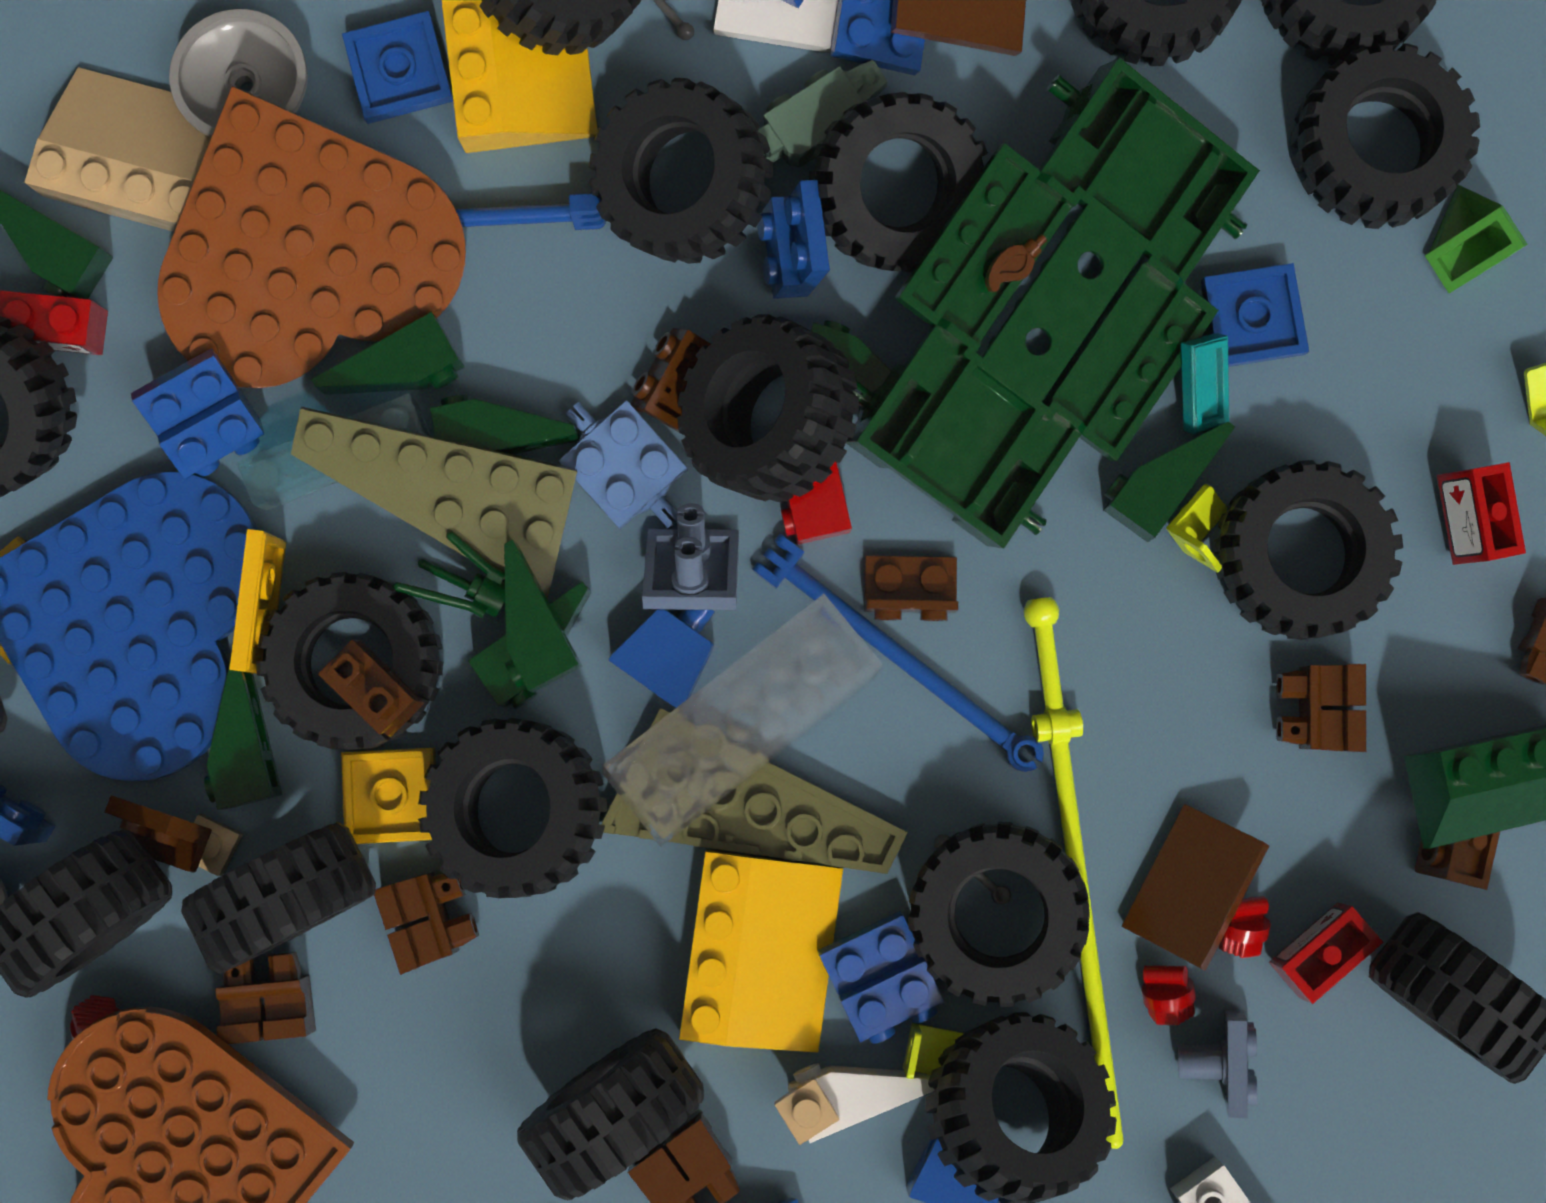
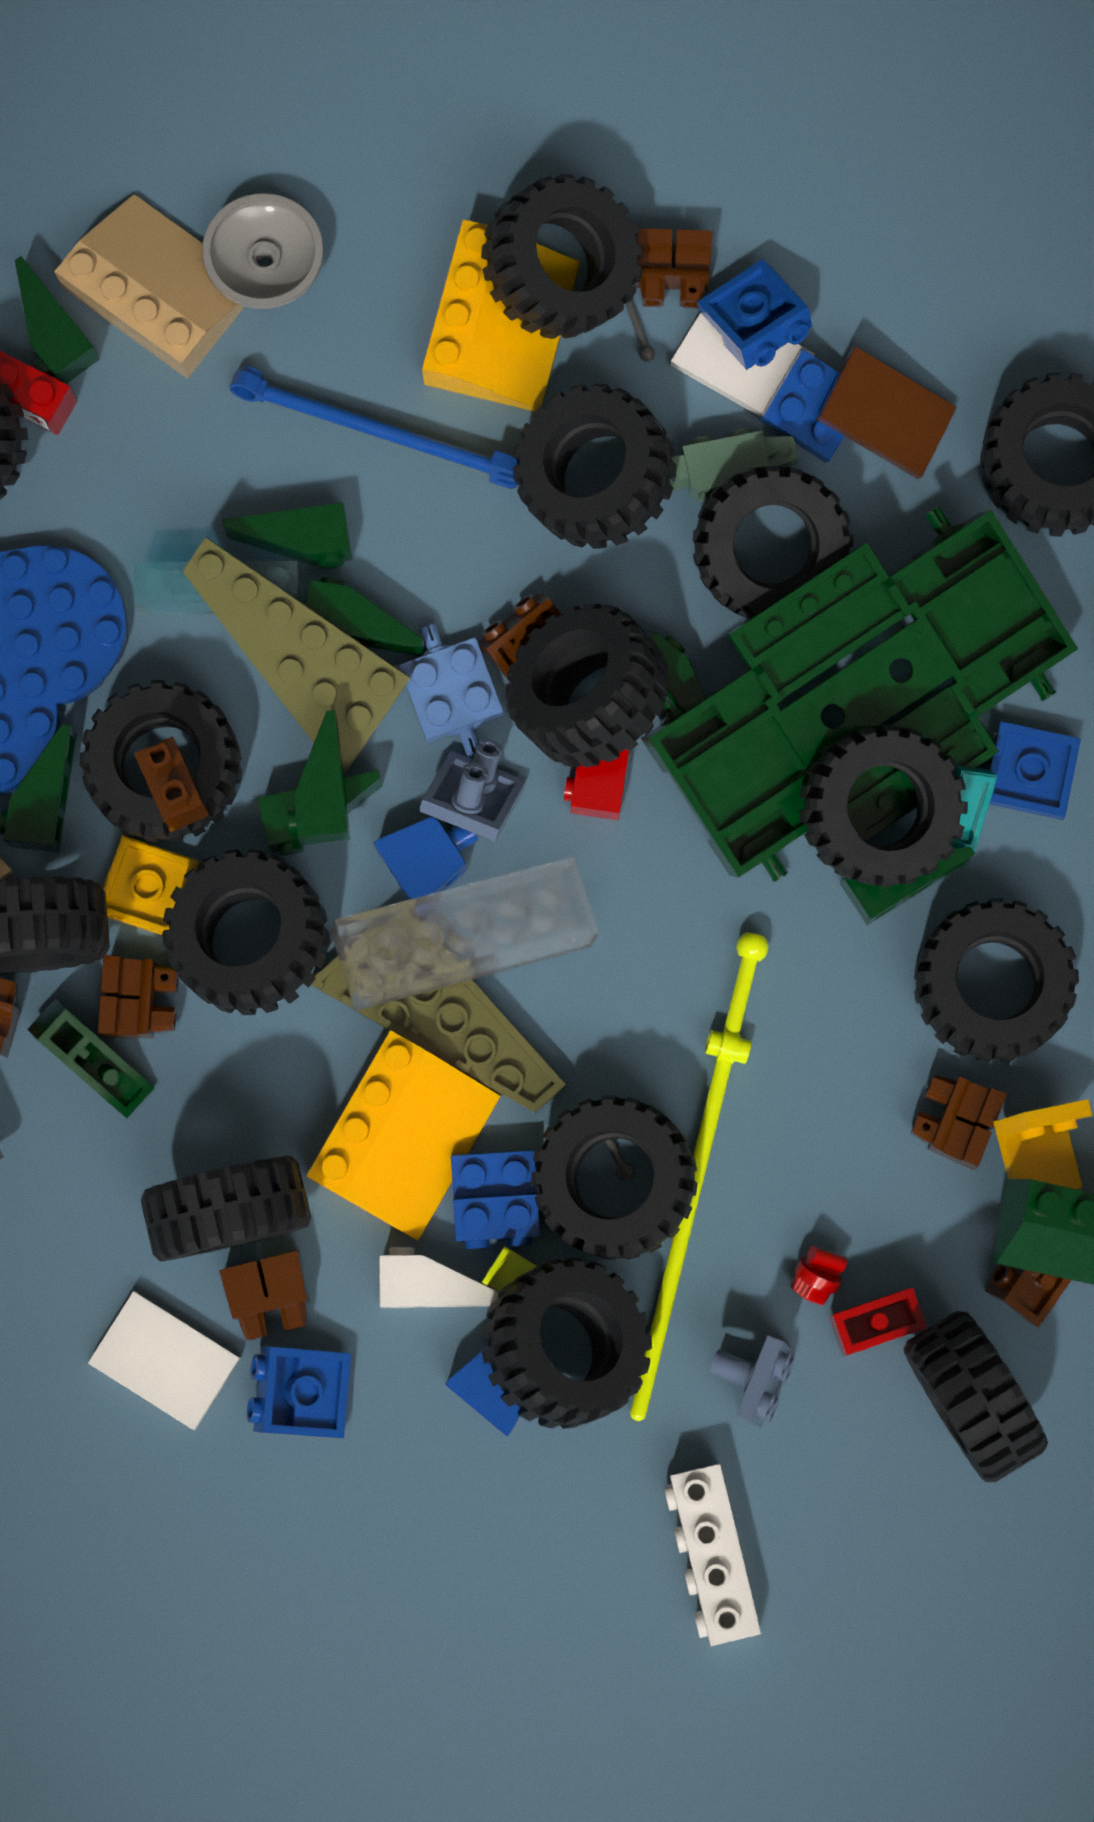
camera: 25 degrees right, 5 degrees down
(199, 415) = (119, 513): blue plate -> none
(257, 597) = (106, 679): yellow tile -> none
(302, 242) = (255, 406): dark orange plate -> none
(397, 67) = (396, 293): blue plate -> none
(401, 1001) = (90, 1058): none -> dark green slope
(485, 592) = (290, 750): dark green plant -> none
(788, 568) = (555, 830): blue hinge -> none
(794, 242) = (665, 561): blue plate -> none
(806, 1110) = (388, 1276): tan plate -> none
(910, 585) = (651, 883): reddish brown bracket -> none
(1013, 263) = (836, 643): reddish brown piece -> none
(1168, 994) = (732, 1306): red piece -> none
(1187, 409) = (936, 815): none -> black tyre
(1195, 522) = (913, 923): neon yellow bracket -> none
(1195, 886) = (789, 1224): reddish brown tile -> none
(1418, 706) = (1039, 1144): none -> yellow bracket

